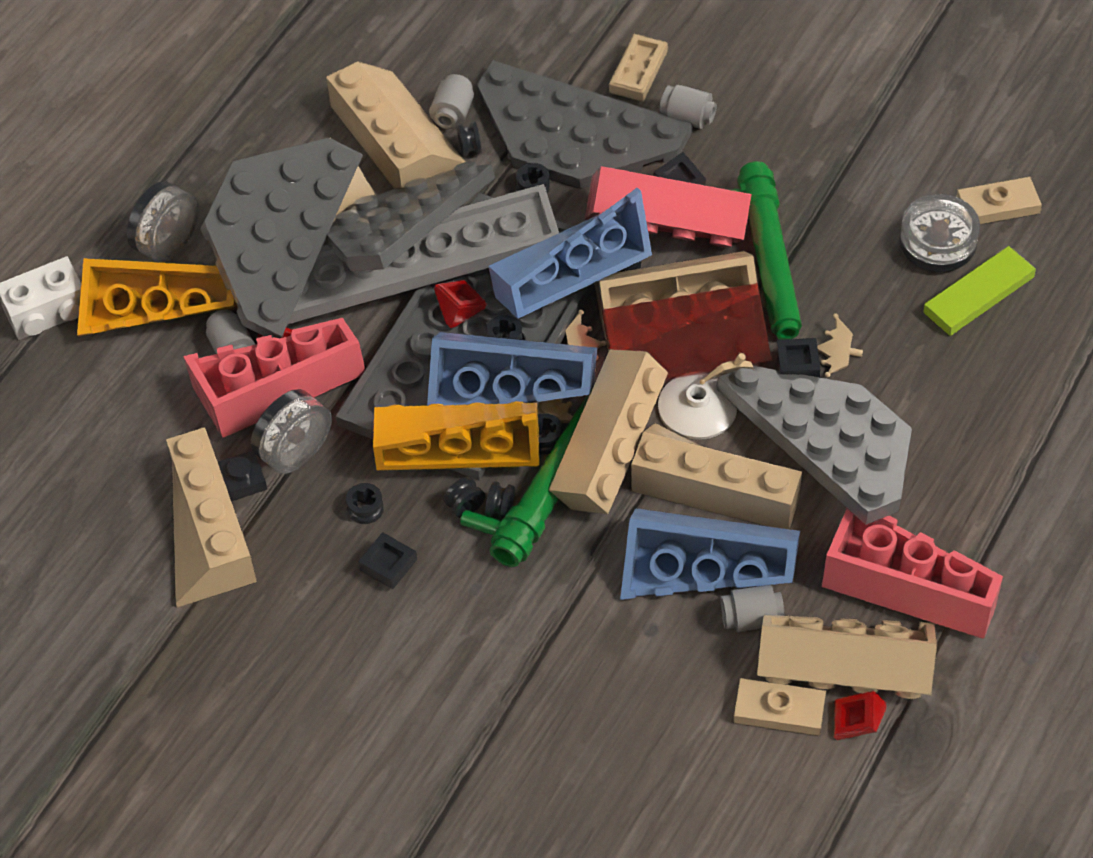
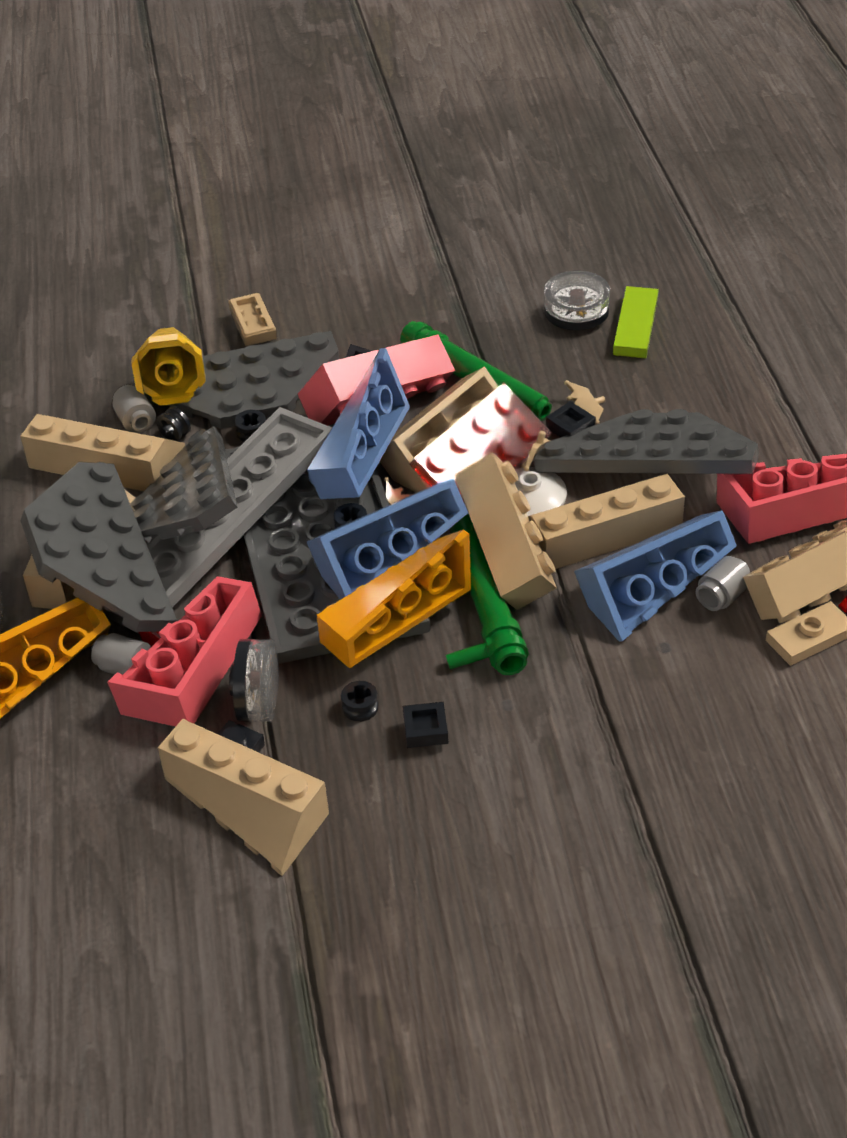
camera: 40 degrees left, 10 degrees down
(458, 302) = (290, 522): red slope -> none
(464, 496) = (436, 645): black bush -> none
(499, 78) = (168, 367): none -> yellow cone
(499, 500) = (466, 631): black bush -> none
(688, 105) = (317, 318): light grey brick -> none
(1002, 200) = (594, 260): tan plate -> none

